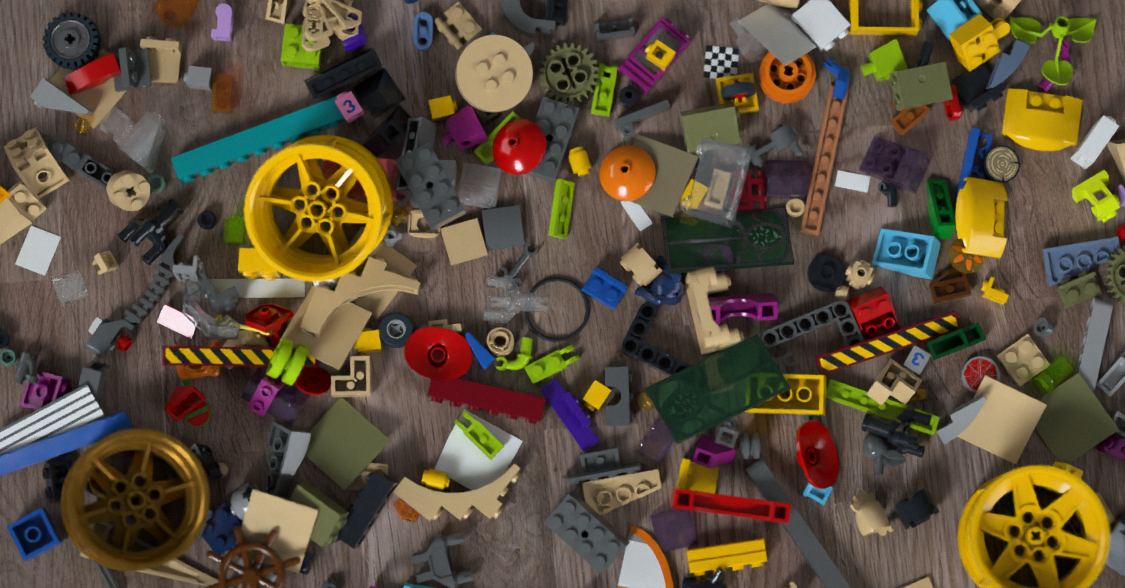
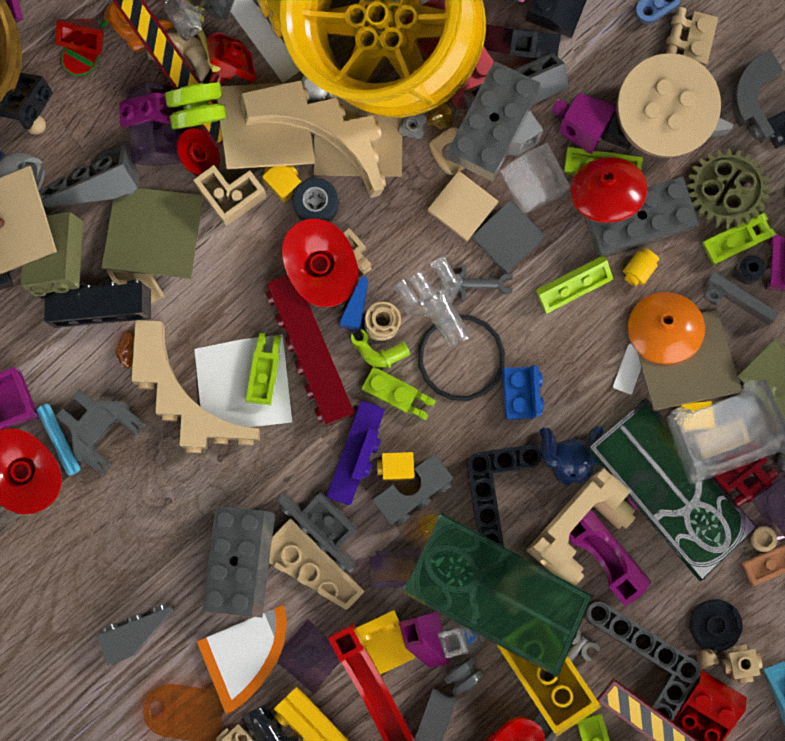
camera: 55 degrees right, 0 degrees up
(435, 479) = (183, 357): yellow brick -> none
(442, 108) = (590, 81): yellow brick -> none
(641, 265) = (575, 413): tan brick -> none

